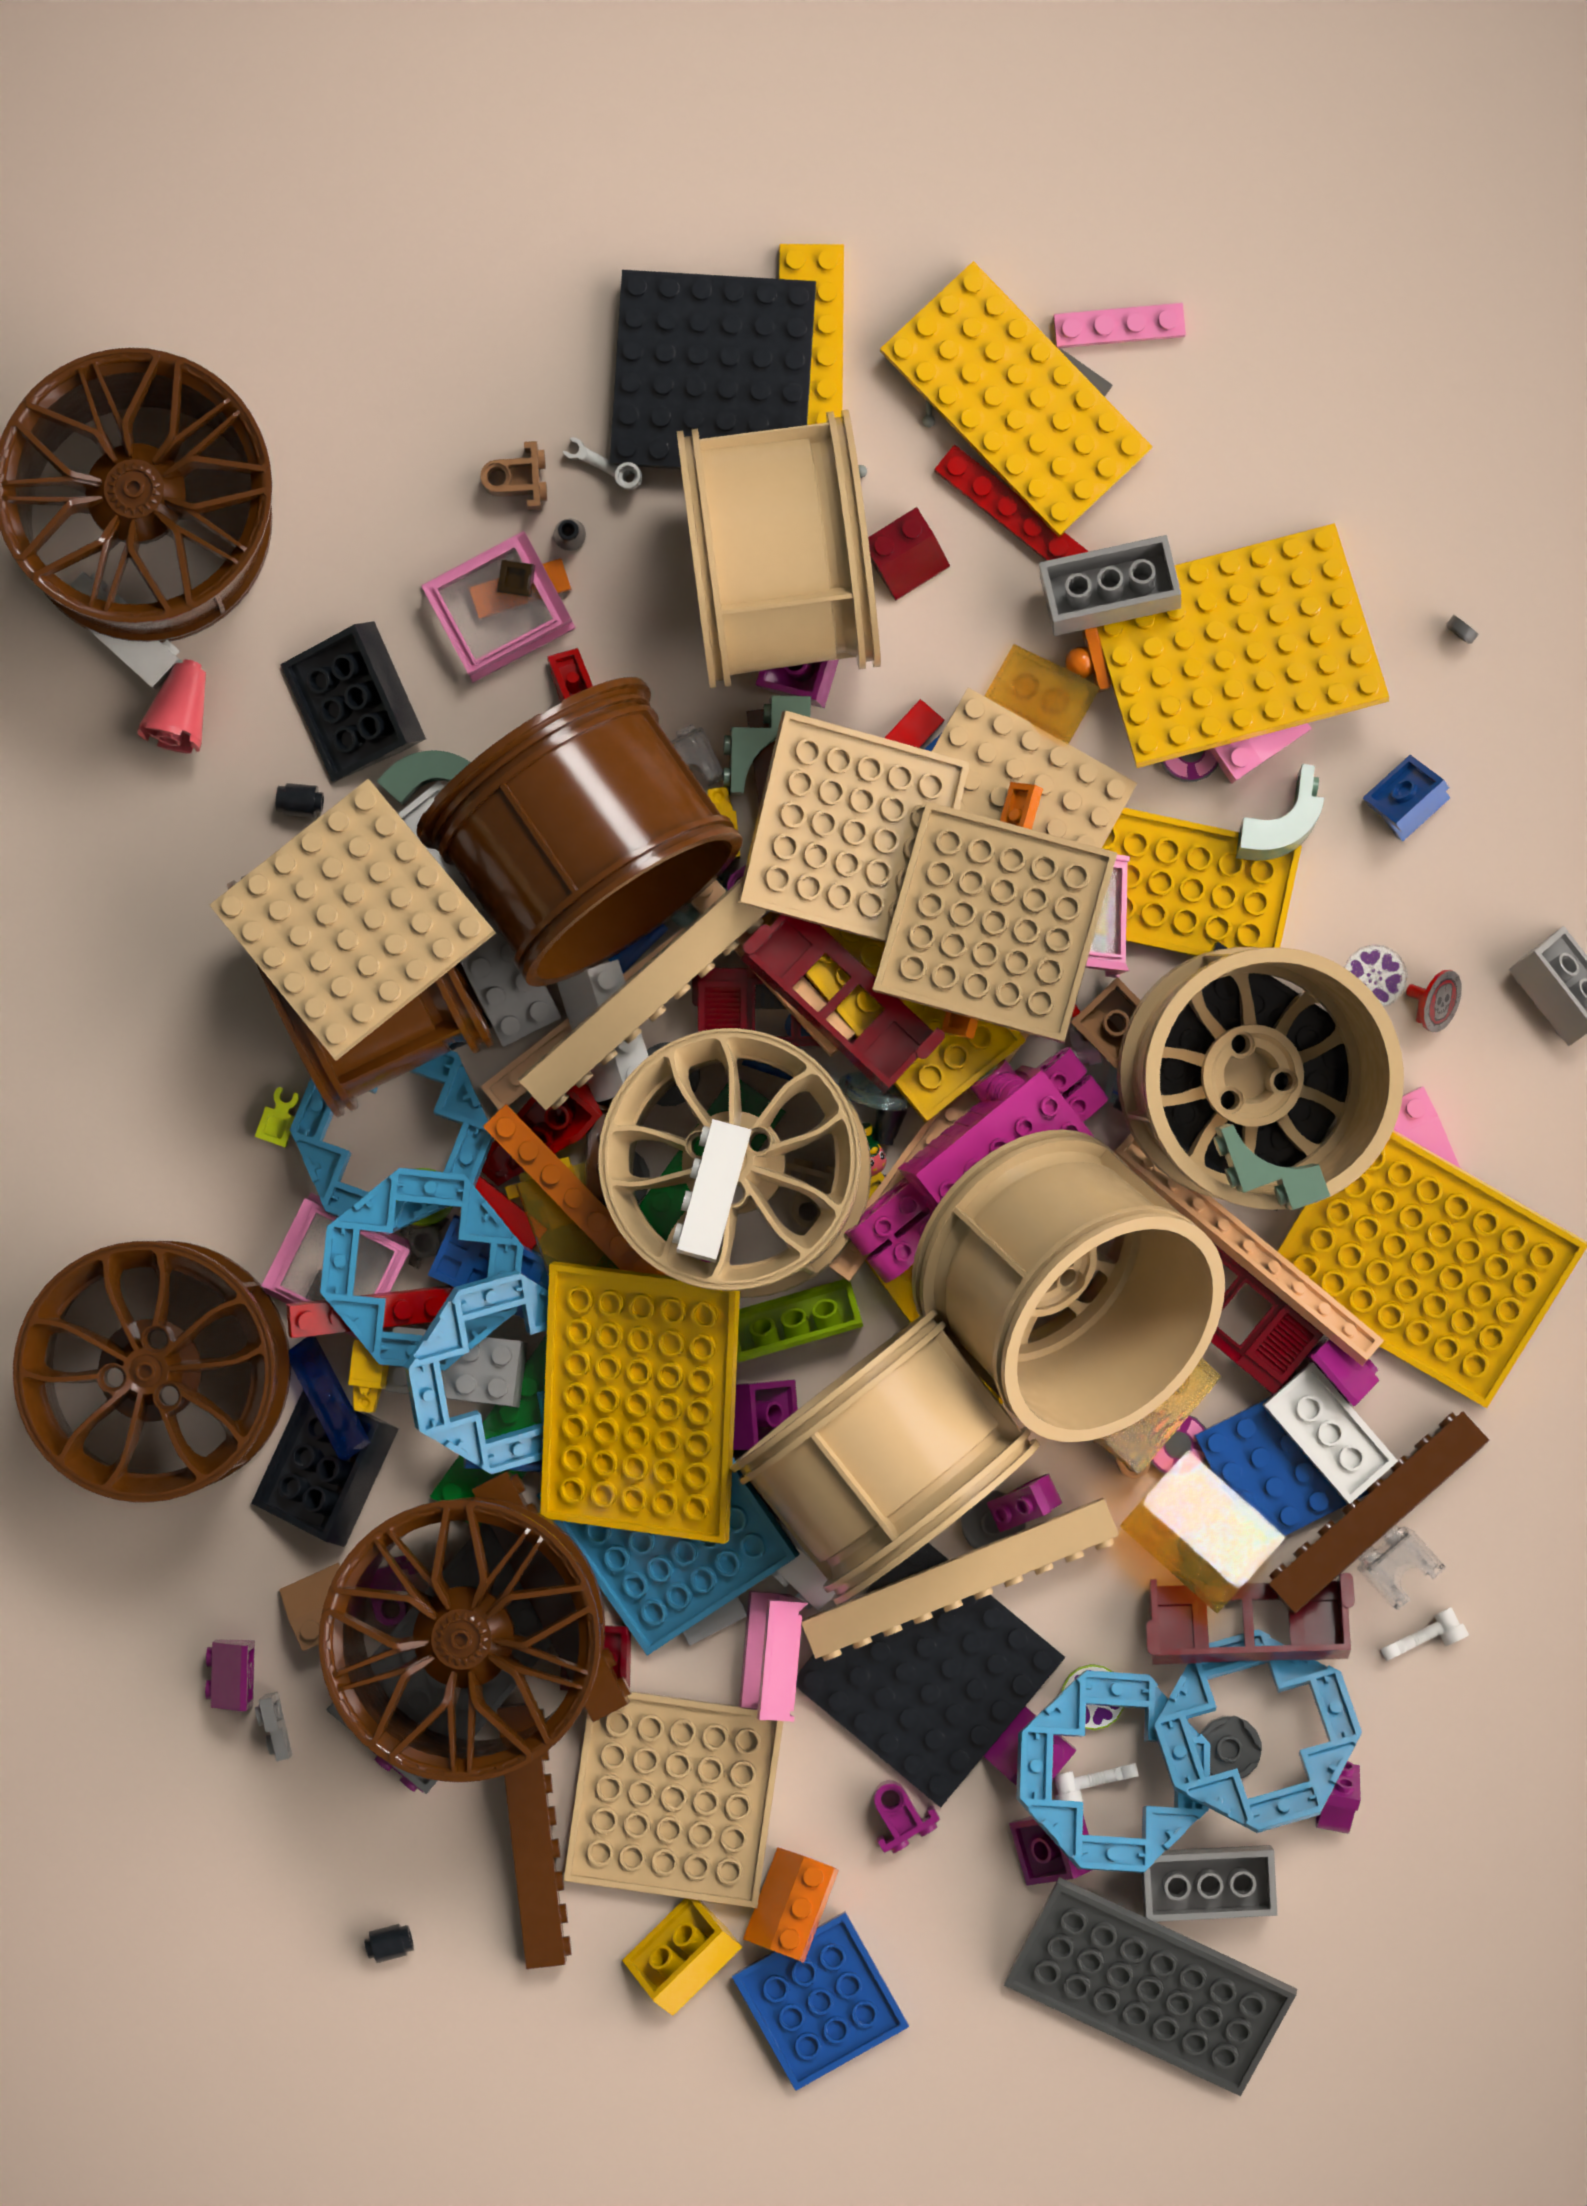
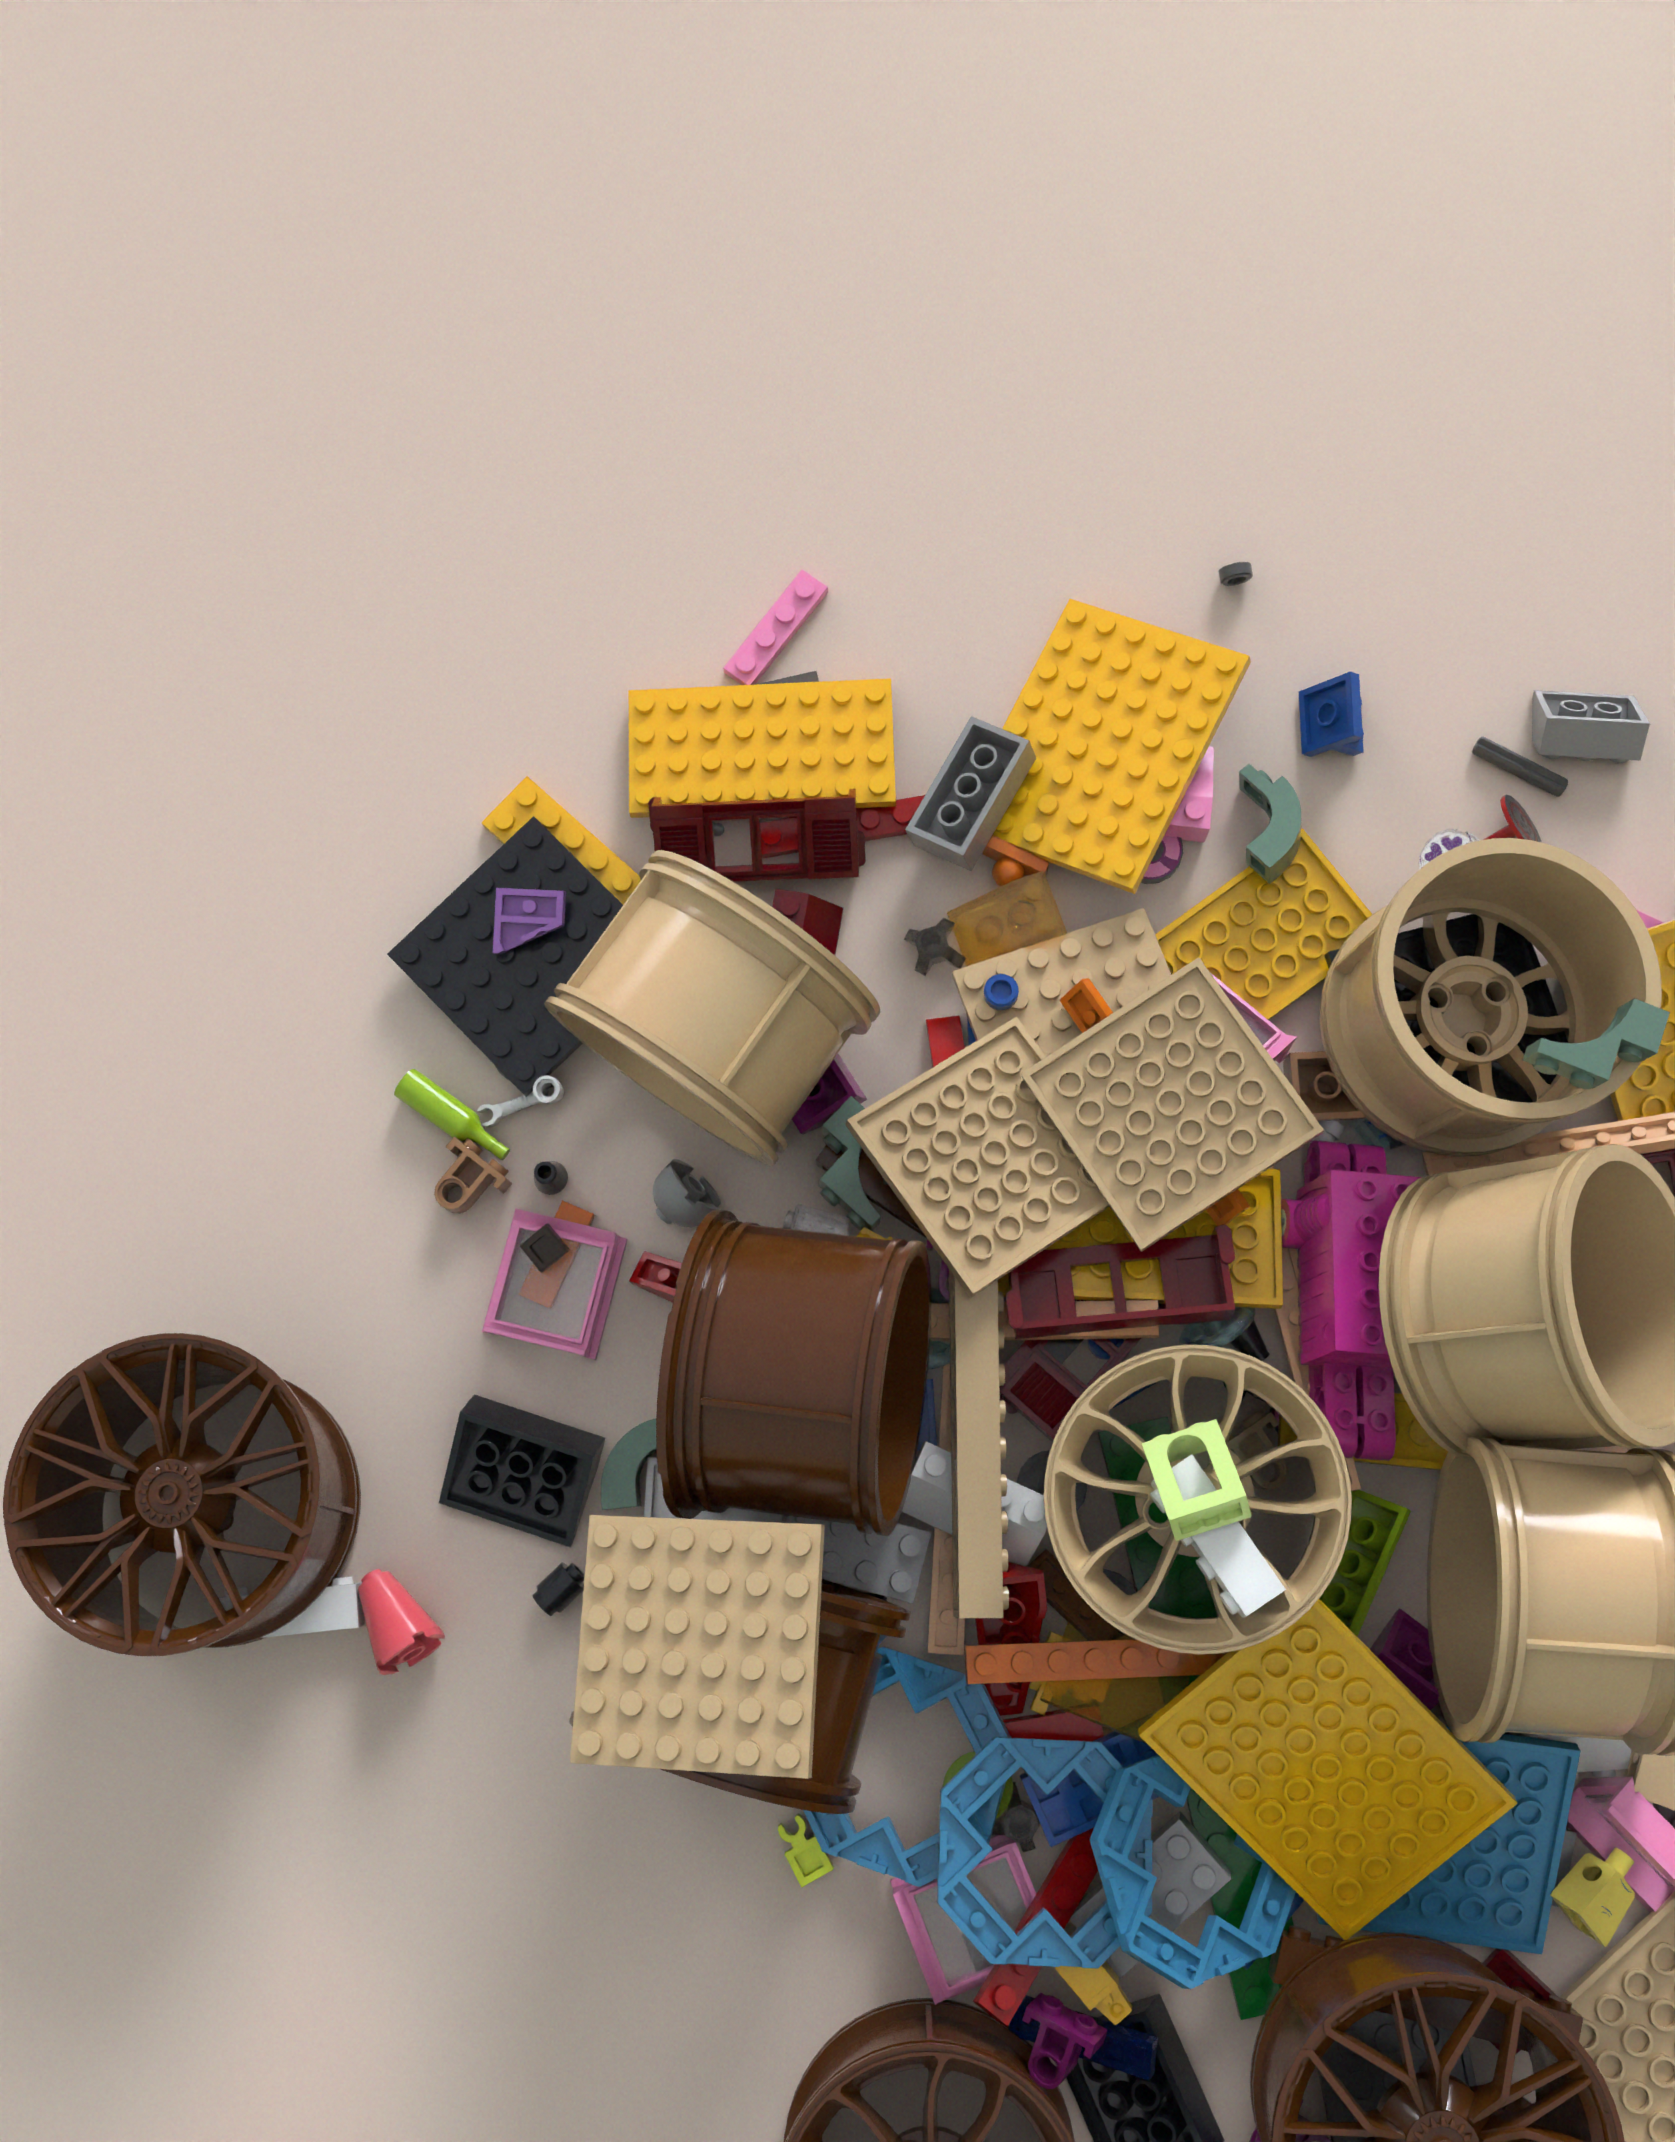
camera: 40 degrees left, 10 degrees down
(314, 1382) = (1059, 2038): none -> magenta pin
(549, 417) = (446, 1111): none -> lime piece
(639, 642) = (682, 1197): none -> light grey cylinder
(716, 1656) = (1596, 1894): none -> light yellow torso
(724, 1169) = (1208, 1510): none -> yellowish green panel
(736, 346) = (525, 915): none -> medium lavender wing
(978, 657) = (934, 946): none -> clear smoke rock
(980, 735) = (1001, 992): none -> blue tile
(987, 510) = (825, 828): none -> dark red piece
(1492, 964) = (1520, 766): none -> dark grey axle

